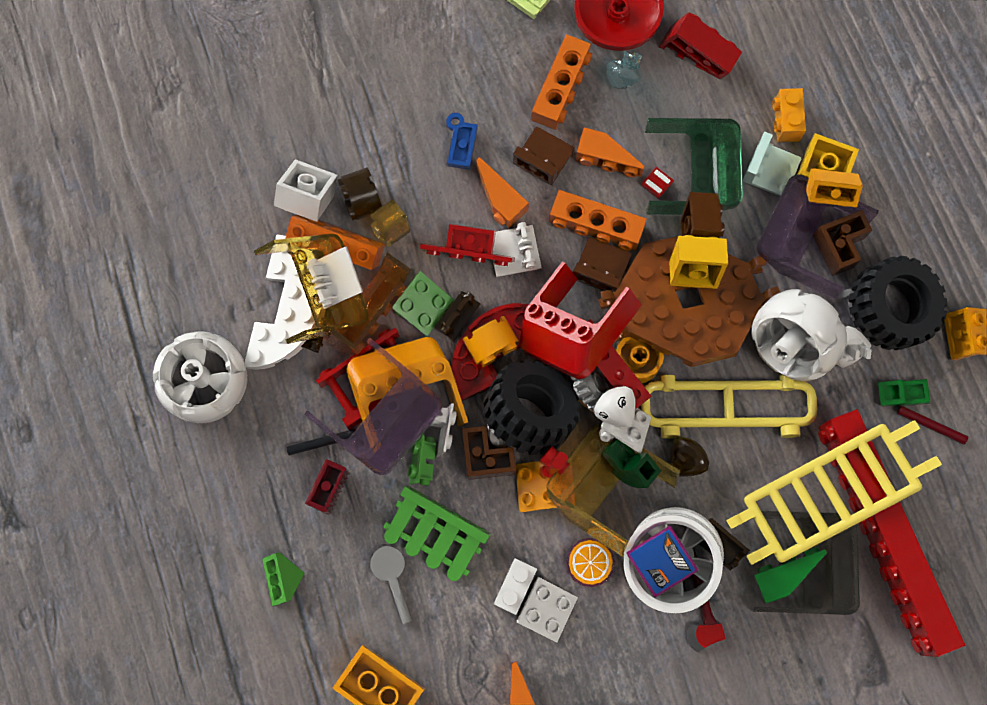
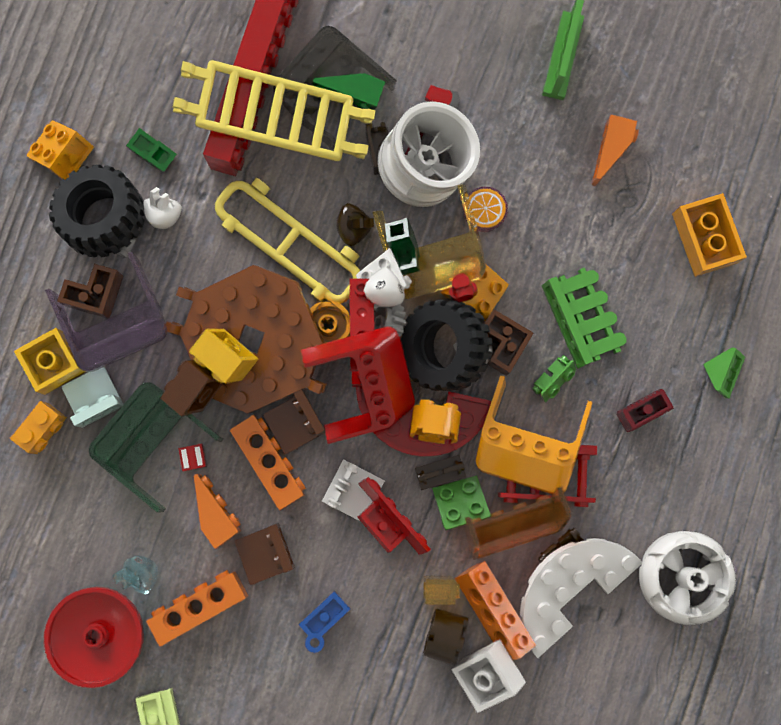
camera: 150 degrees left, 5 degrees up
(317, 443) = (621, 453): black bar -> none
(334, 277) = (527, 568): white hinge -> none
(340, 316) = (534, 569): clear yellow windscreen -> none
(388, 565) = (638, 320): light grey piece -> none
(393, 423) = (569, 408): clear purple windscreen -> none
(444, 421) = (516, 390): white hinge -> none
(504, 200) = (329, 539): orange slope -> none
(515, 586) = (555, 231): white brick -> none
(547, 609) = (544, 200): white hinge -> none
(662, 561) = (444, 151): slope -> none
(701, 44) = (55, 546): red wedge -> none
(802, 315) = (195, 240): white wheel -> none
(834, 187) = (65, 330): light orange brick -> none
(933, 425) = (156, 122): dark red bar -> none

